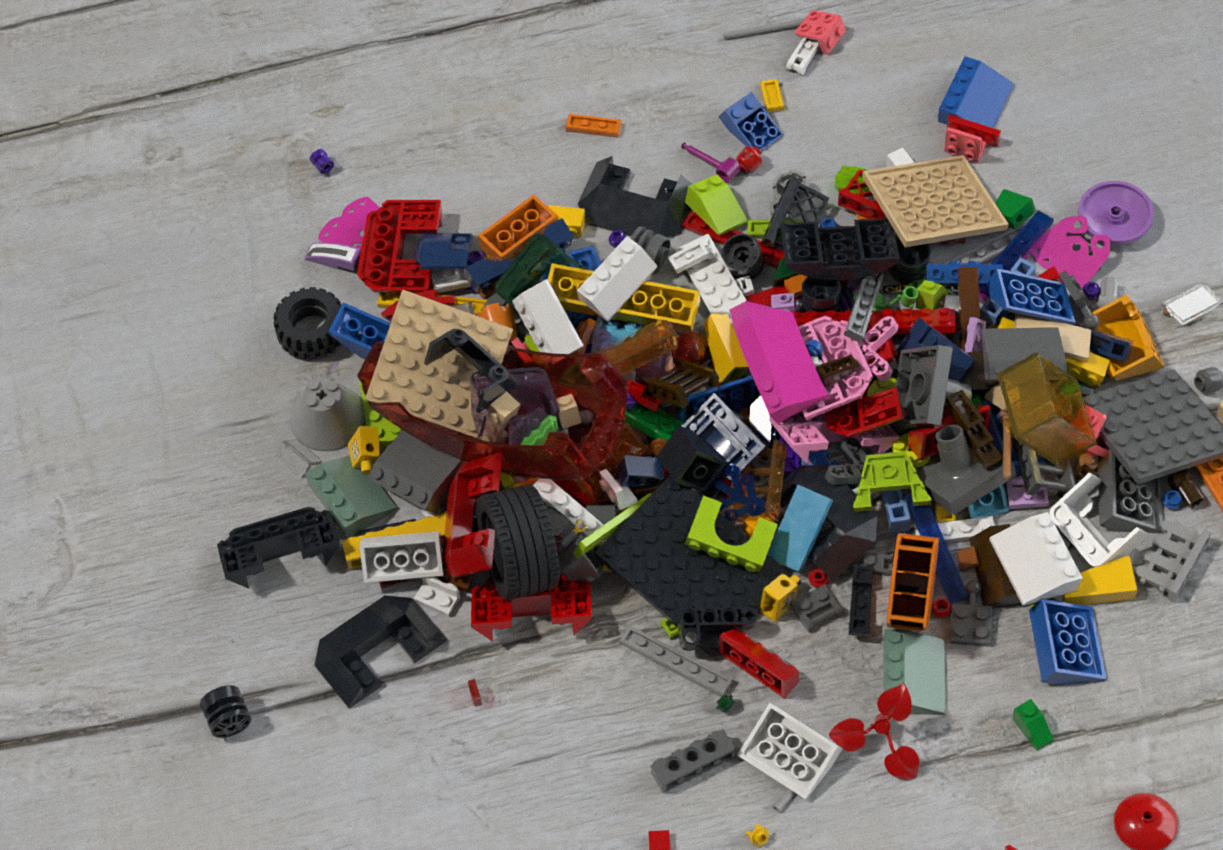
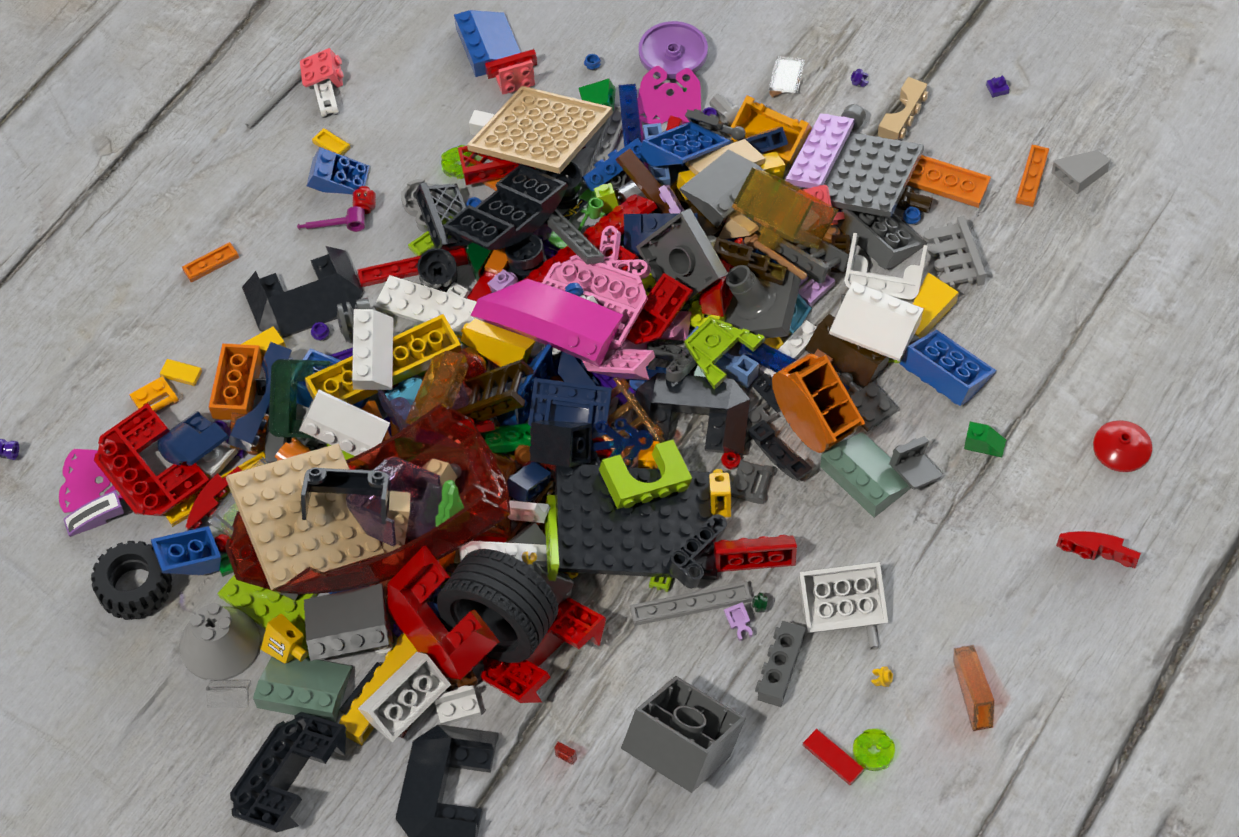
camera: 45 degrees left, 0 degrees up
(457, 196) = (154, 392): none -> light orange plate
(491, 195) = (180, 372): none -> yellow tile
(558, 746) = (683, 733): none -> dark grey brick
(688, 257) = (396, 300): white plate -> none
(696, 700) = (738, 618): none -> lavender plate
(715, 204) = (373, 250): lime slope -> none
(799, 528) = (687, 428): dark azure tile -> none
(831, 372) = (613, 292): dark brown slope -> none
(894, 704) = (893, 497): red plant -> none
(954, 696) = (913, 465): none -> bracket
(1042, 172) = (592, 61): none -> blue plate
(1143, 386) = (820, 151): none -> lavender plate

